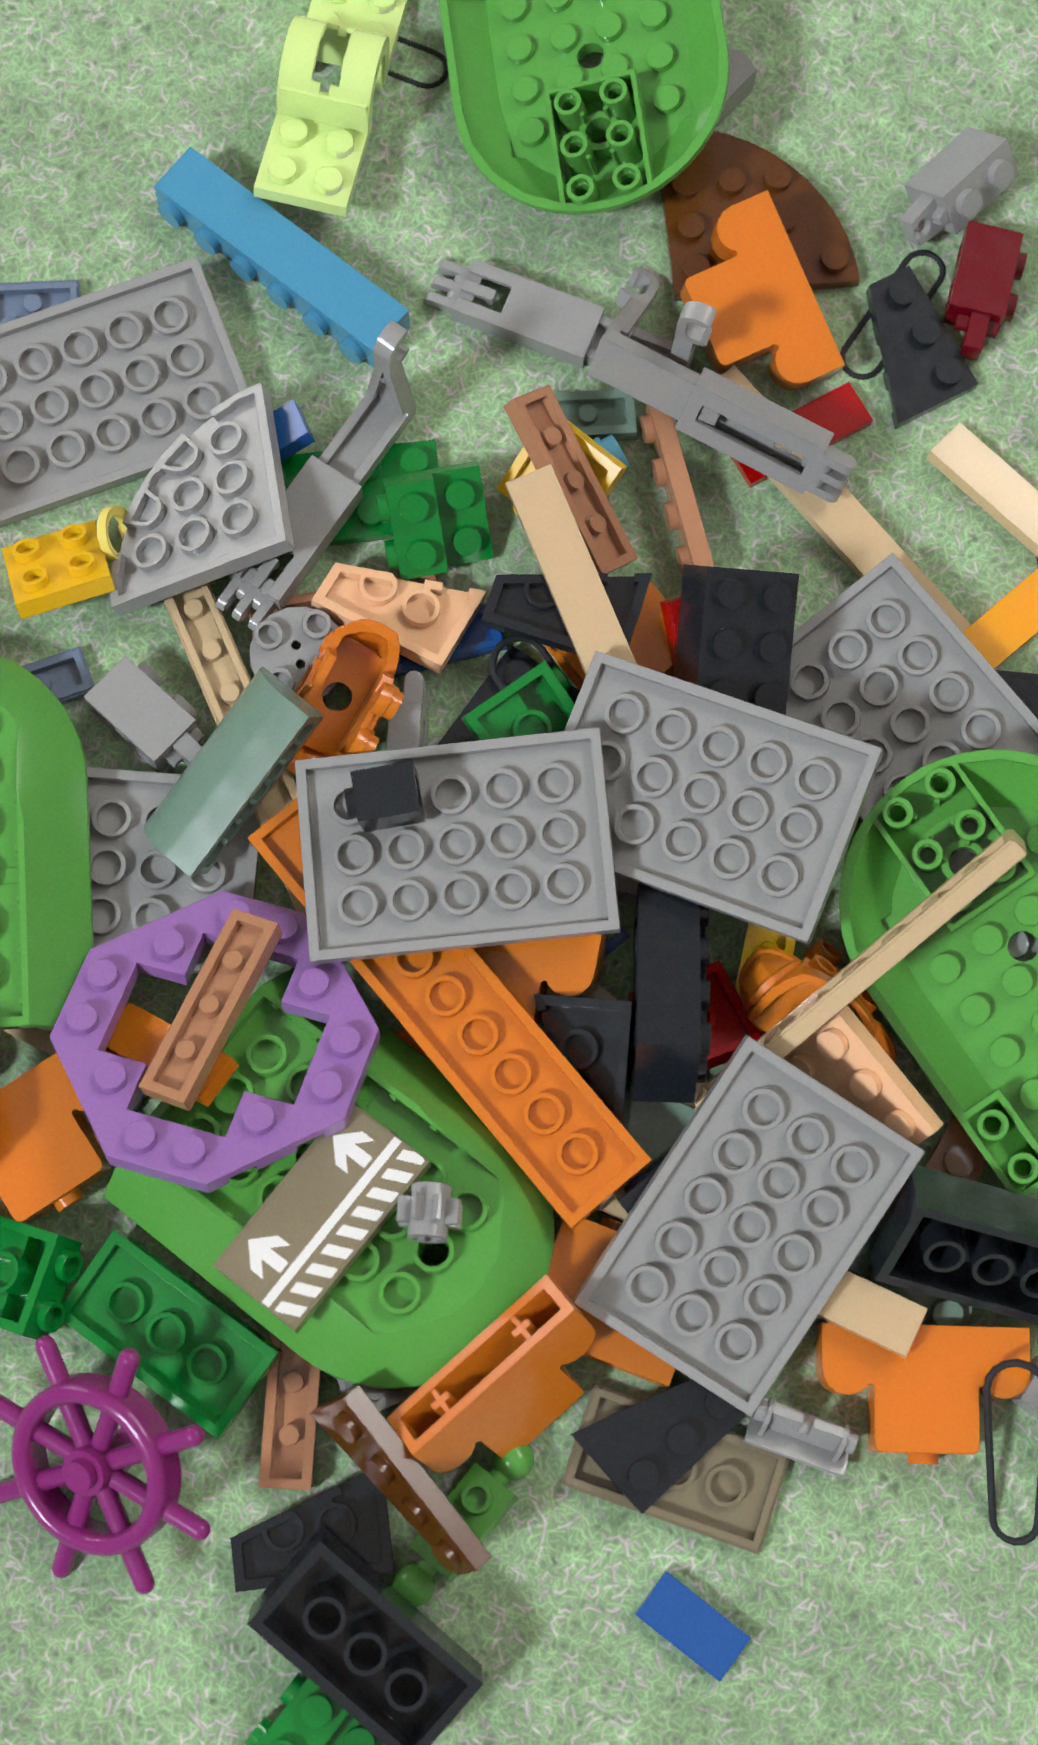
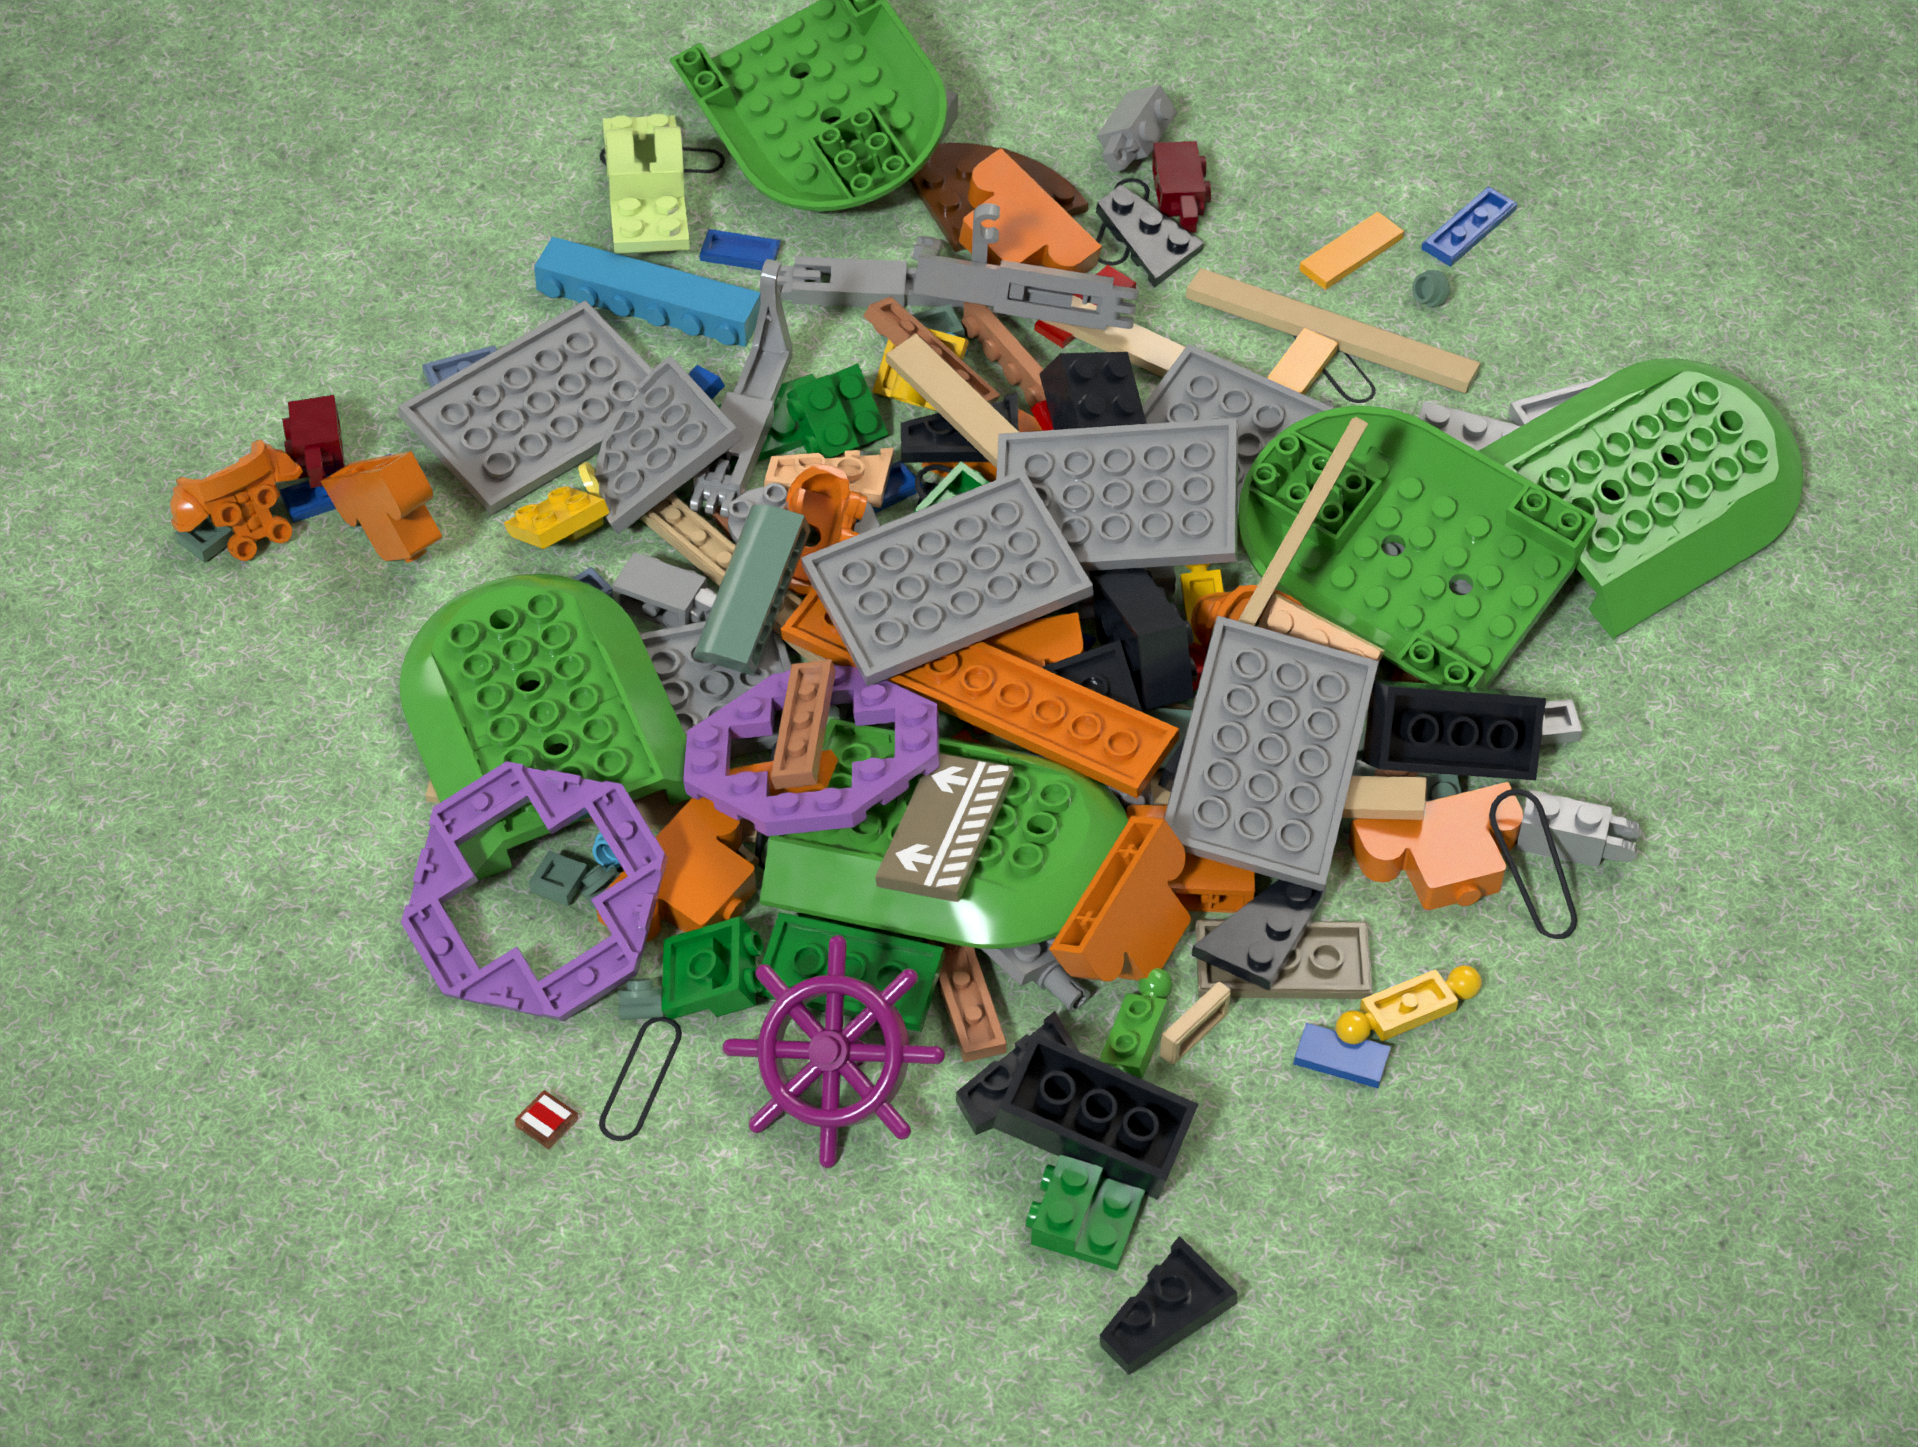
camera: 15 degrees left, 25 degrees down
(385, 797) = (883, 548): black brick -> none
(393, 1469) = (1064, 988): reddish brown wing -> none
(416, 221) = (738, 249): none -> blue tile
(429, 1212) = (1028, 790): light grey gear -> none
(537, 1534) = (1195, 1023): none -> tan tile
(794, 1588) = (1408, 1005): none -> yellow plate
(801, 1436) = (1387, 906): light grey hinge -> none

